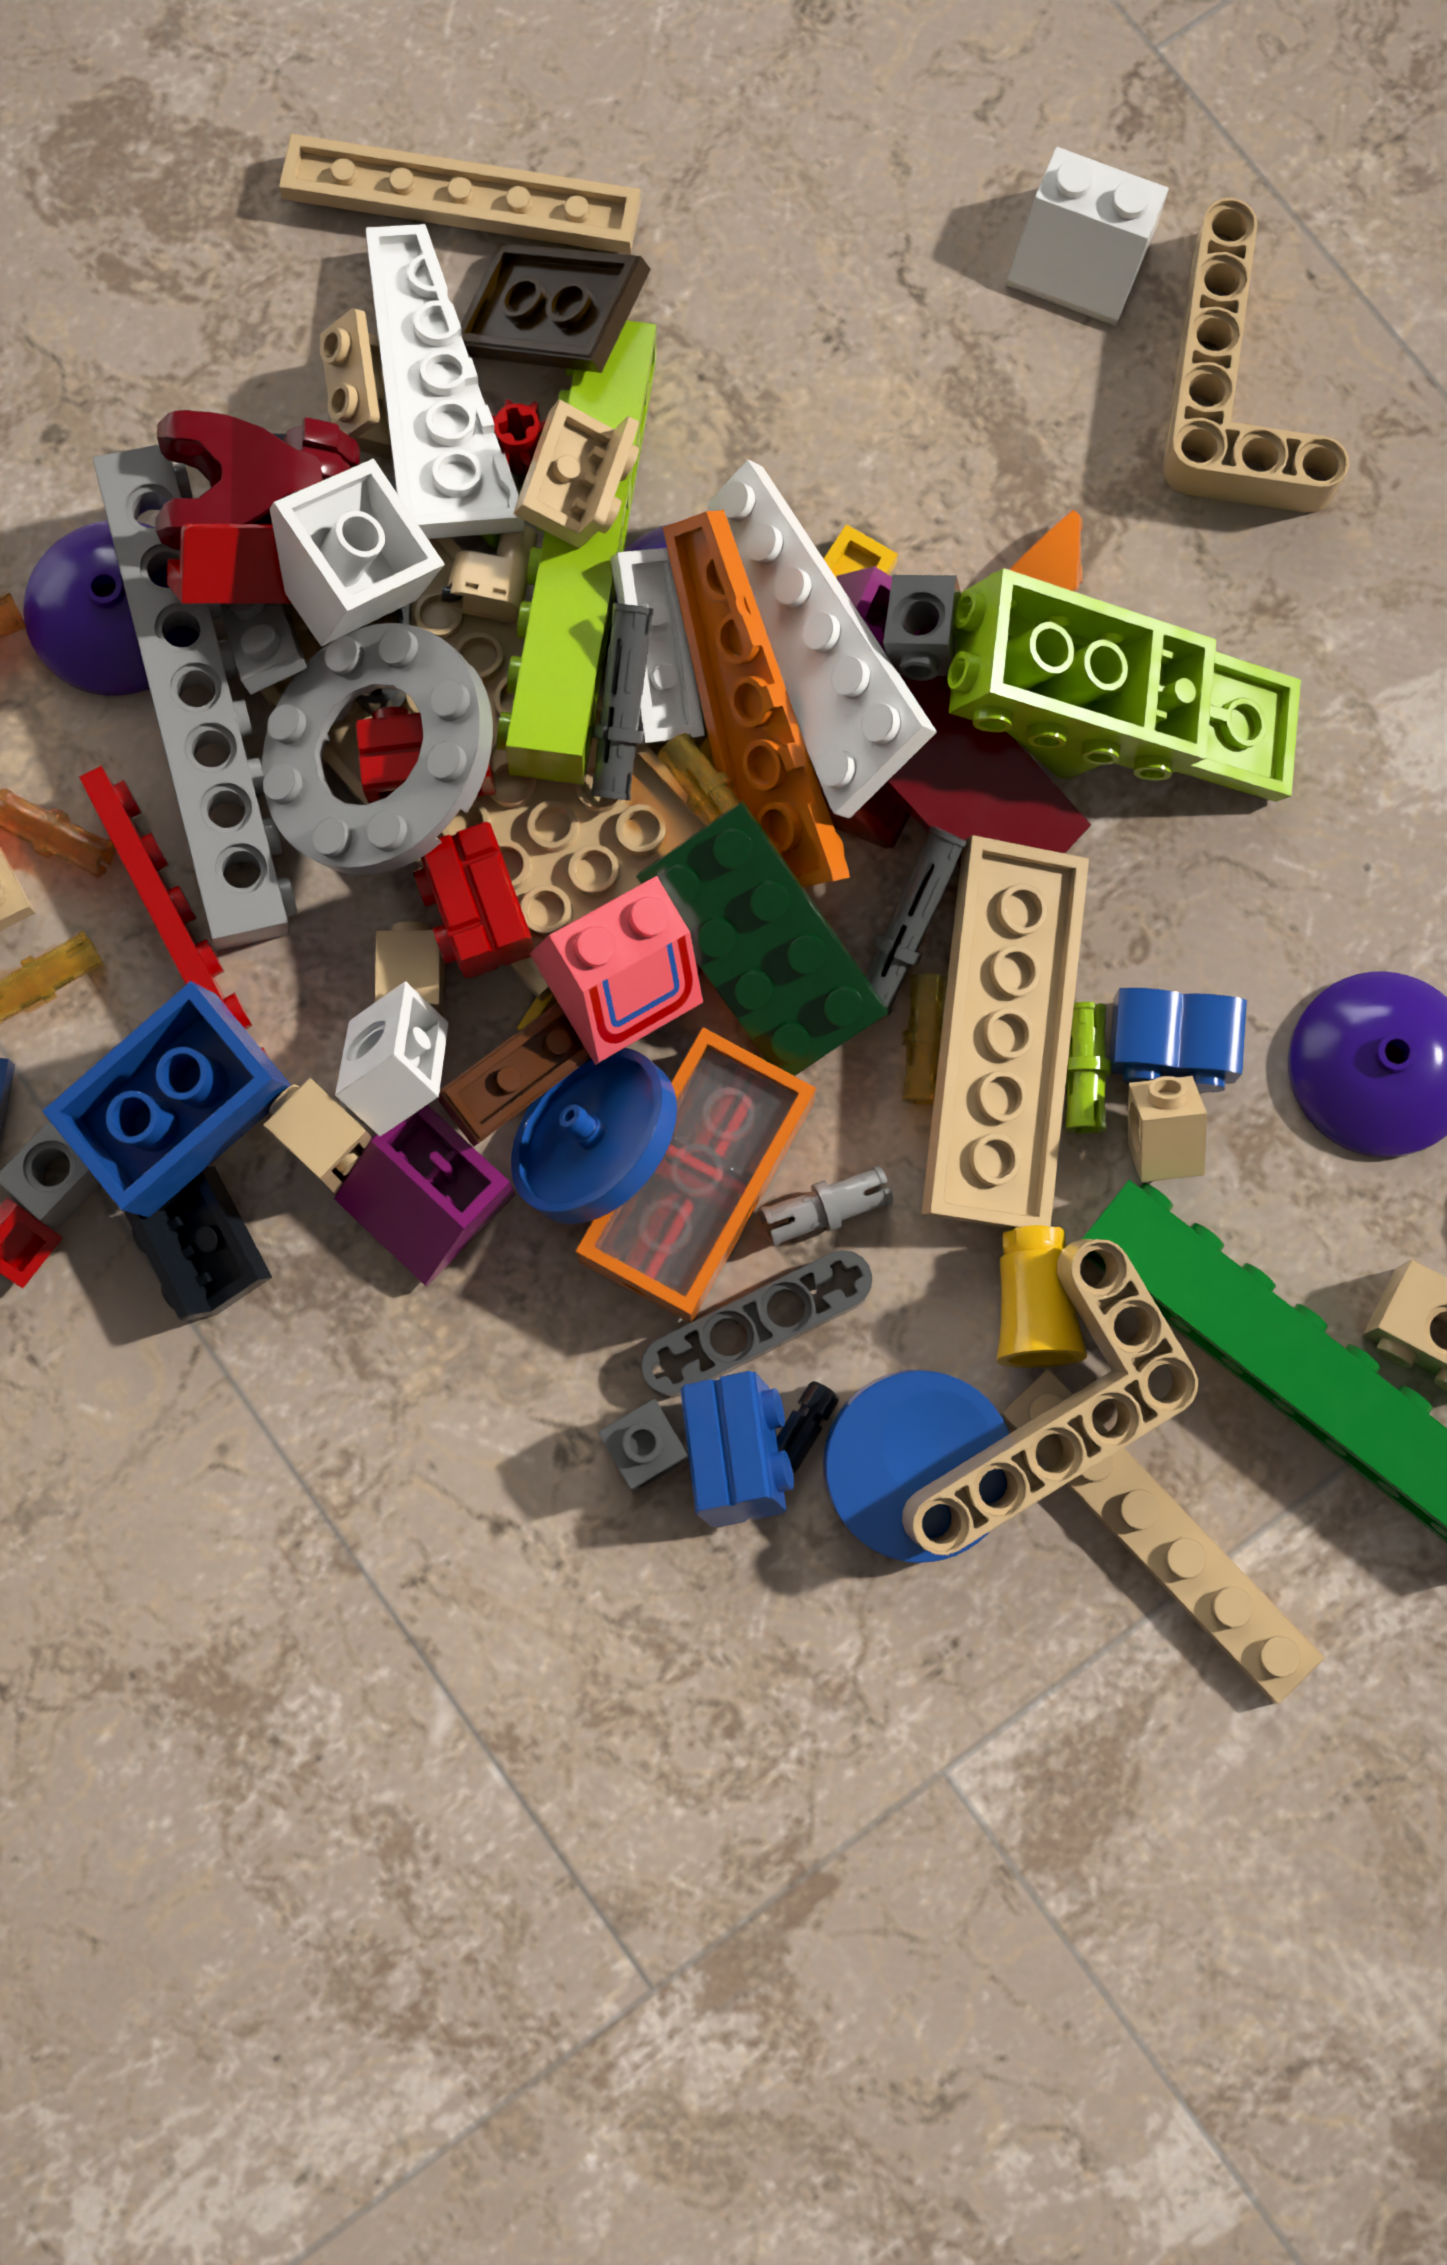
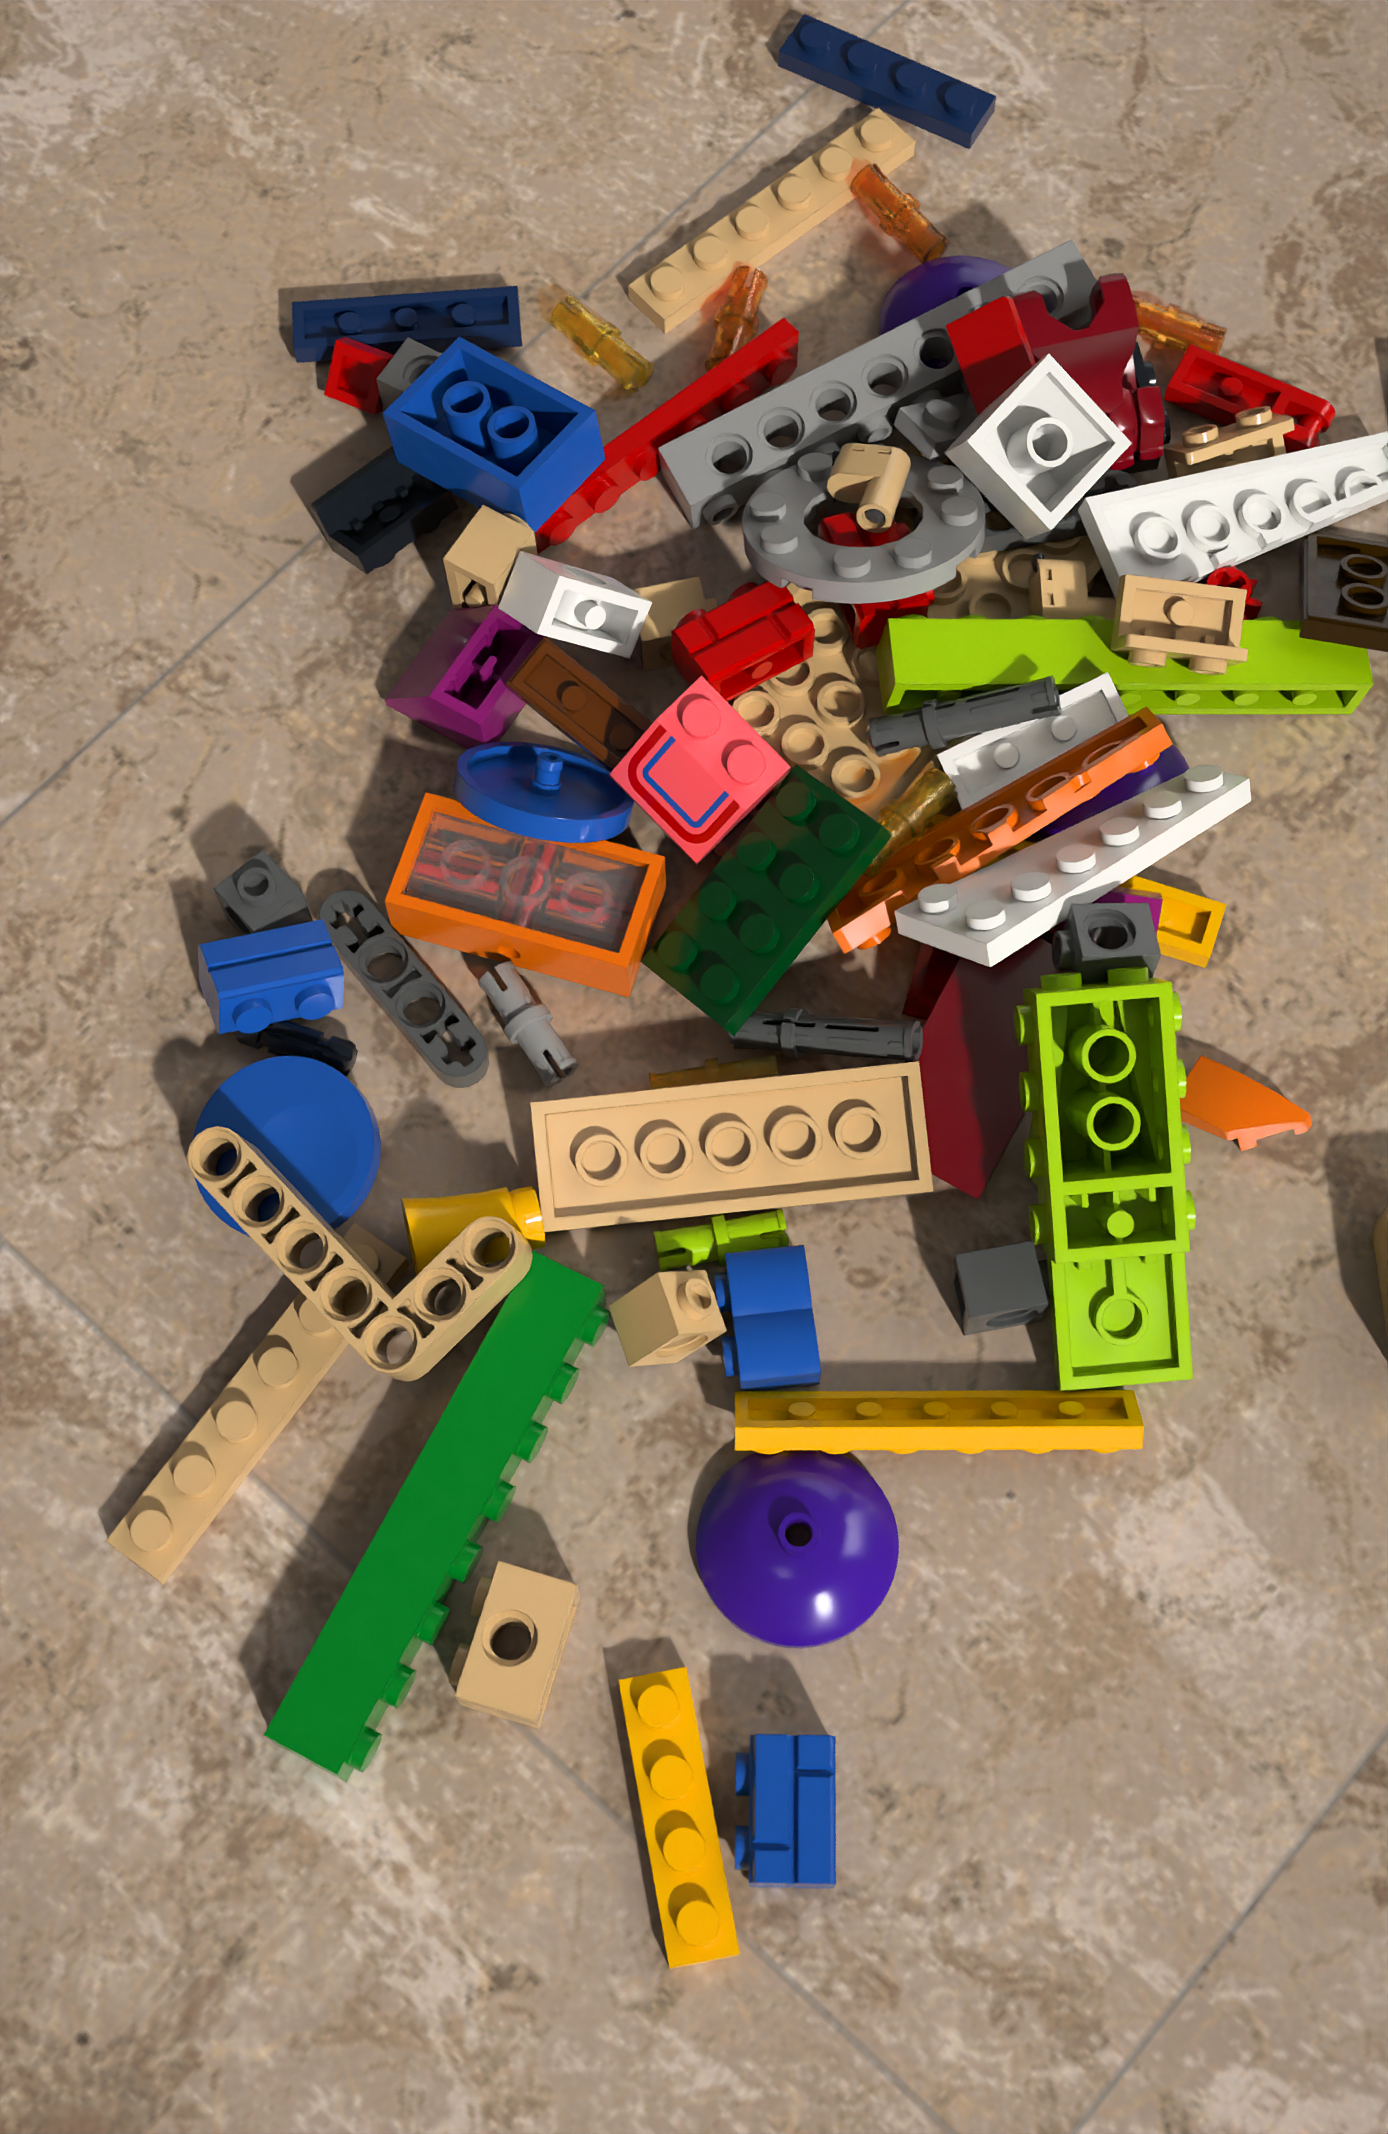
camera: 80 degrees right, 10 degrees down
(185, 392) = (1176, 329): none -> clear orange pin
(283, 355) = (1224, 388): none -> red plate
(330, 722) = (870, 478): none -> tan piece
(1186, 824) = (1000, 1287): none -> dark grey brick
(1300, 913) = (937, 1420): none -> yellow plate

